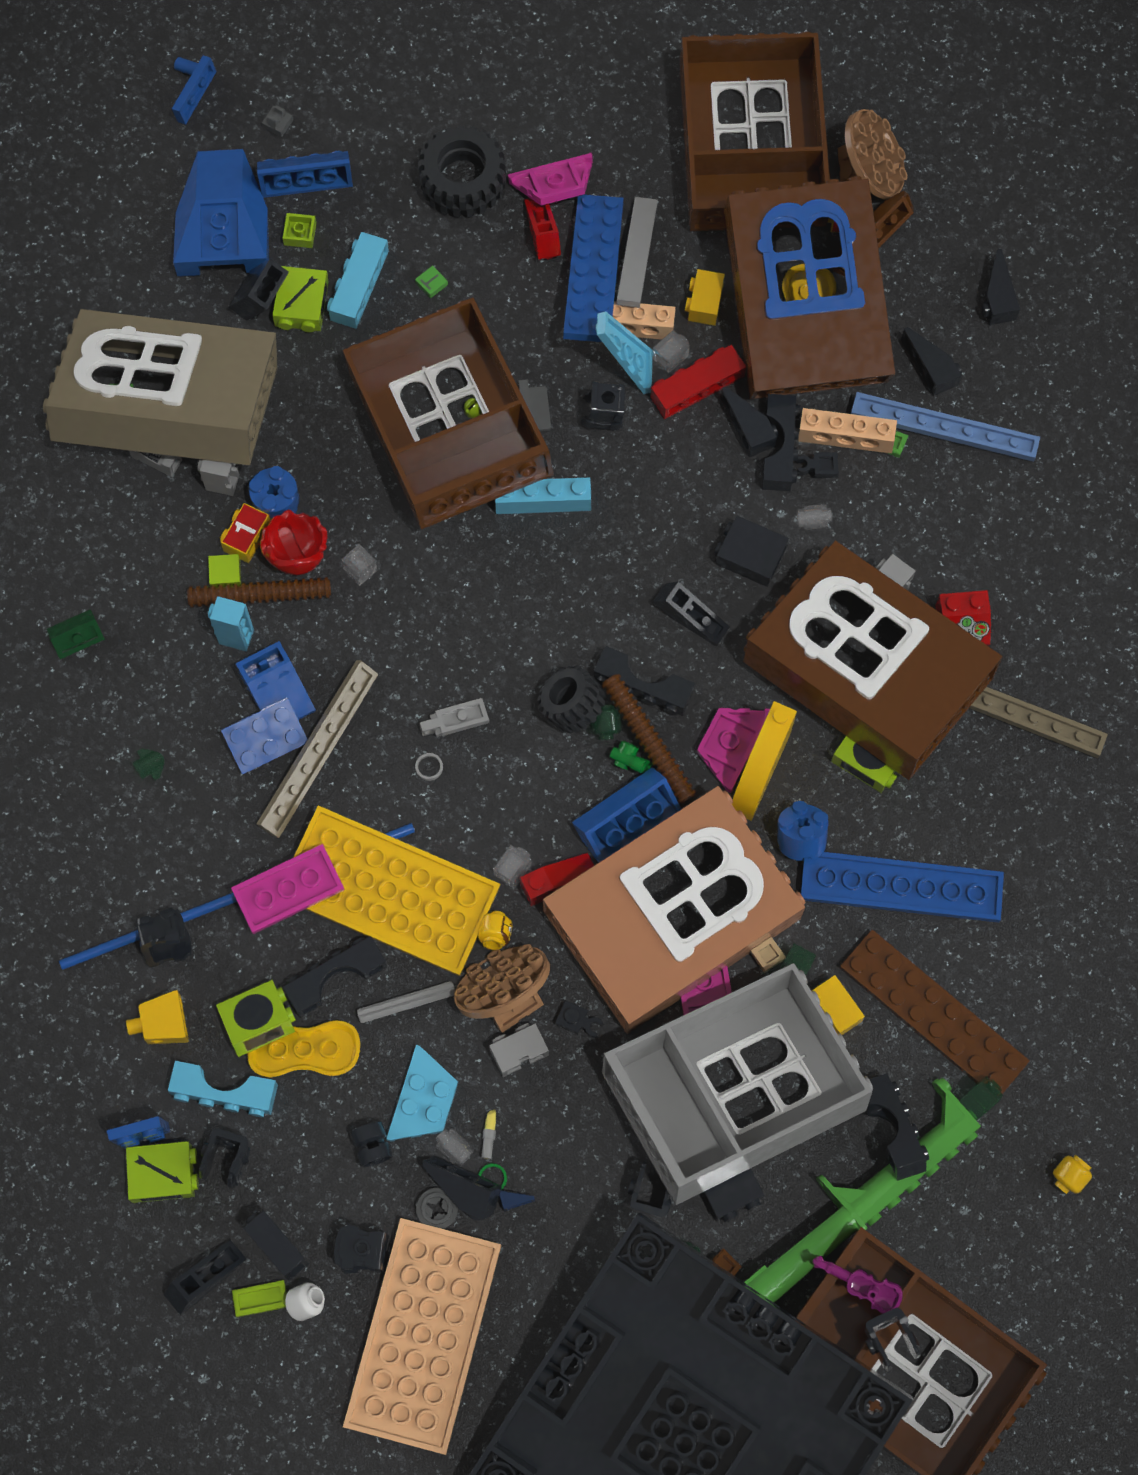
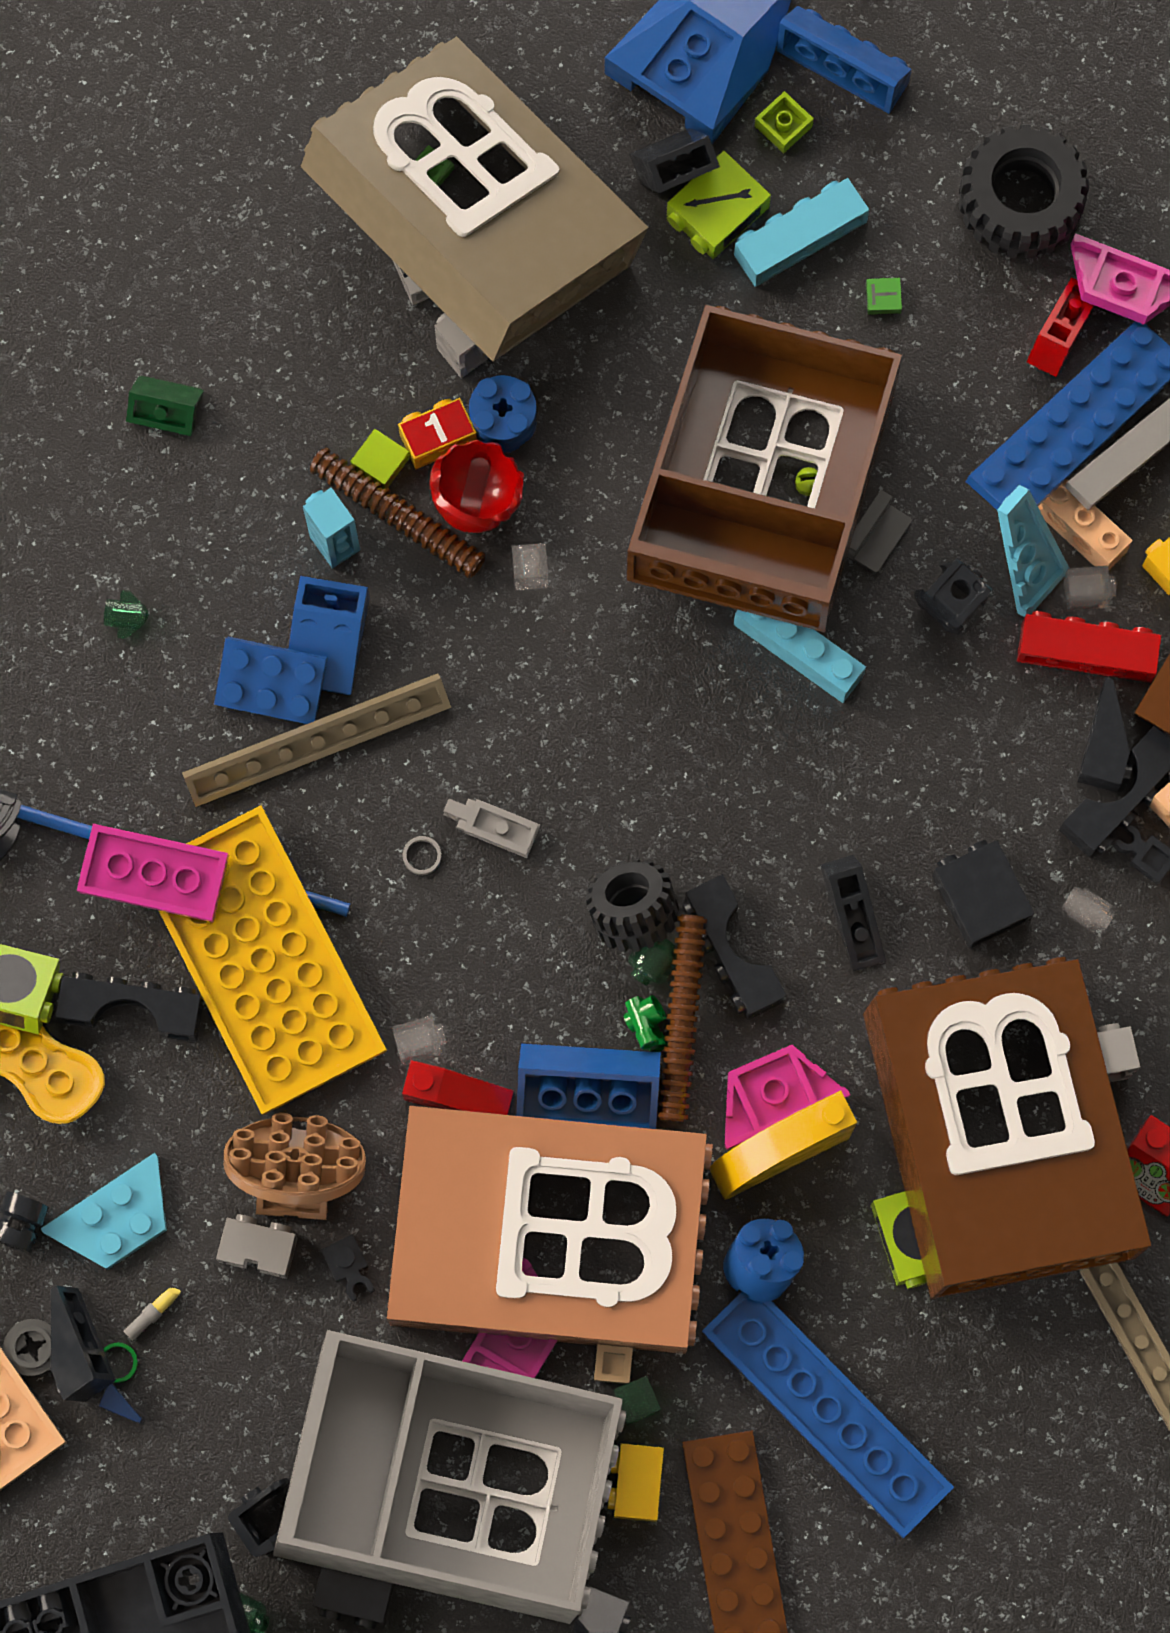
camera: 40 degrees right, 5 degrees up
(406, 1002) = (183, 1097): light grey axle -> none
(454, 1146) = (103, 1295): clear brick -> none
(495, 930) = (340, 1096): yellow head -> none

